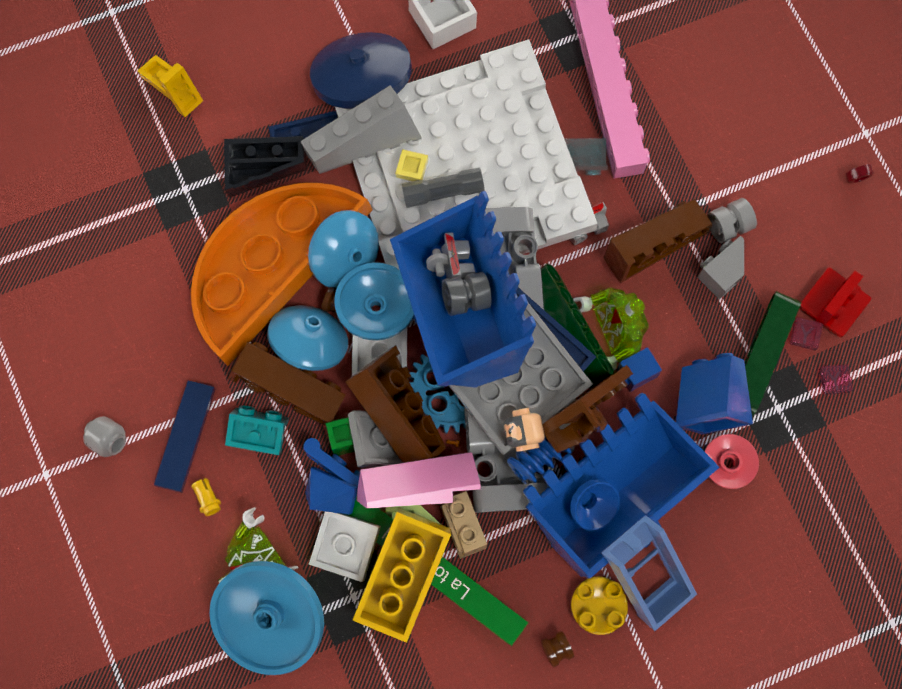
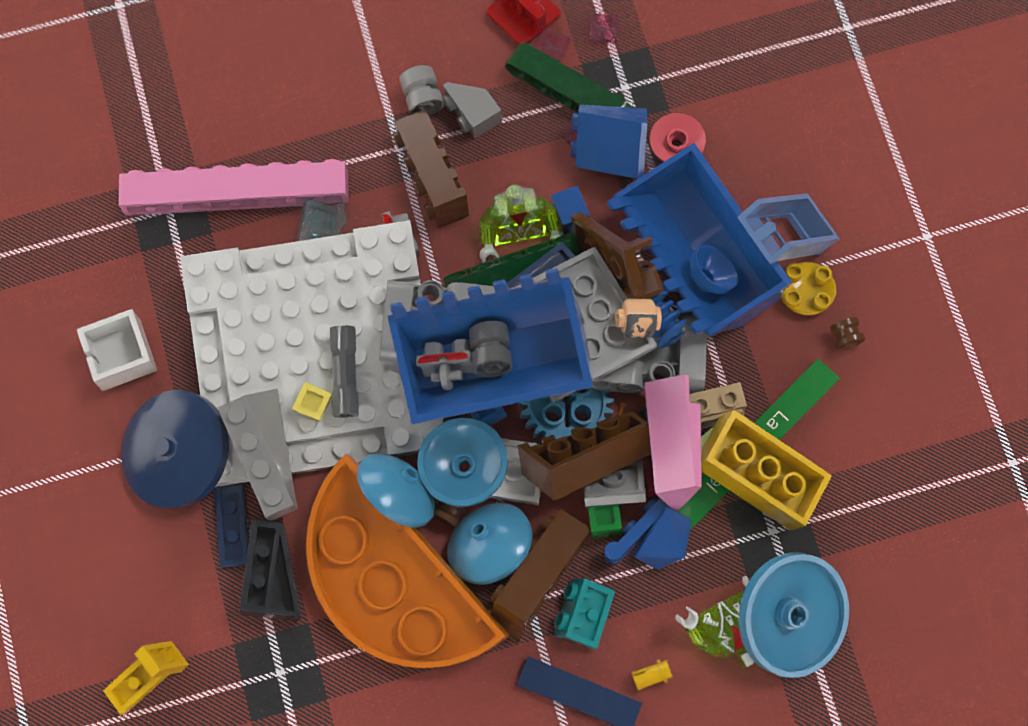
camera: 75 degrees left, 0 degrees up
(344, 545) = (722, 530): white plate -> none

